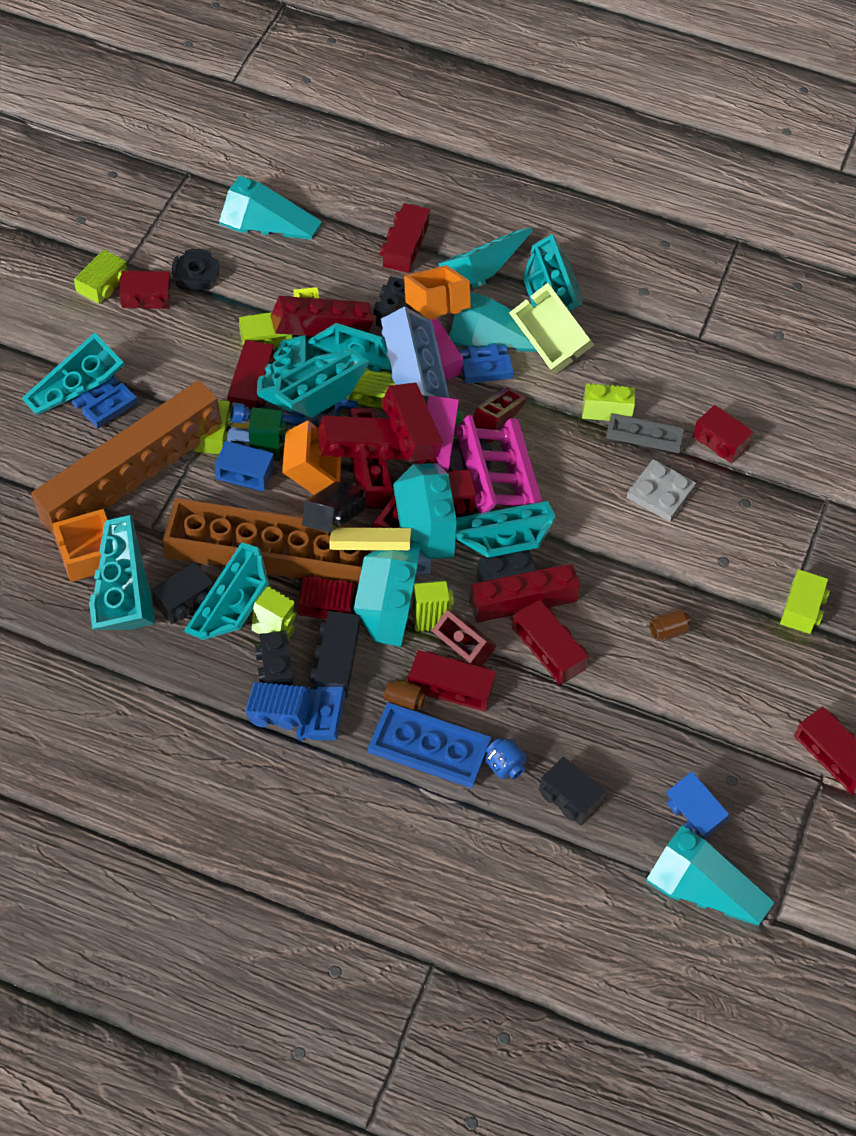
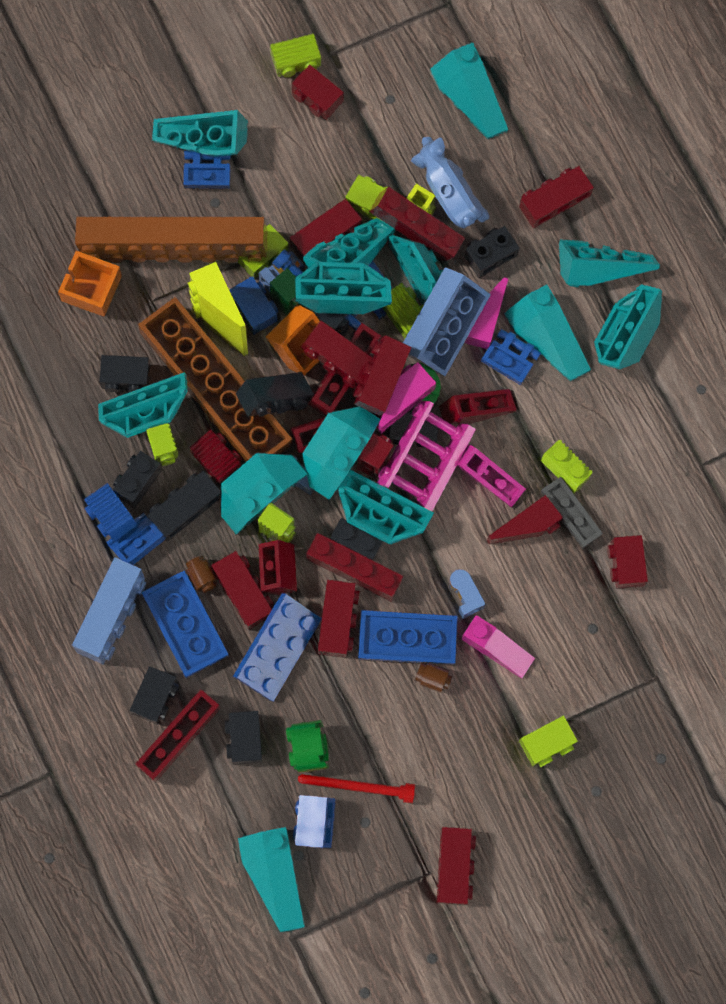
camera: 40 degrees right, 20 degrees up
(121, 586) = (83, 337): teal wedge -> none
(195, 280) = (371, 114): black plate -> none
(228, 470) = (217, 307): none -> neon yellow slope
(318, 272) = (449, 184): none -> medium blue animal
(358, 780) = (109, 611): none -> medium blue brick
(370, 539) = (273, 443): light yellow tile -> none
(437, 292) = (516, 273): orange piece -> none
(462, 818) = (154, 695): none -> black brick
(506, 758) = (221, 678): blue head -> none
(517, 833) = (178, 736): none -> dark red brick
(526, 699) = (277, 647): none -> plate
(551, 328) = (578, 372): yellowish green piece -> none
(558, 451) = (490, 475): none -> dark pink slope
(618, 613) = (407, 637): none -> blue plate
(624, 462) = (530, 523): none -> dark red slope
(628, 545) = (463, 585): none -> medium blue leg
(632, 751) = (308, 746): none -> green brick
(661, 490) = (538, 567): light grey plate -> none
(690, 565) = (497, 646): none -> slope
(741, 728) = (404, 792): none -> red piece

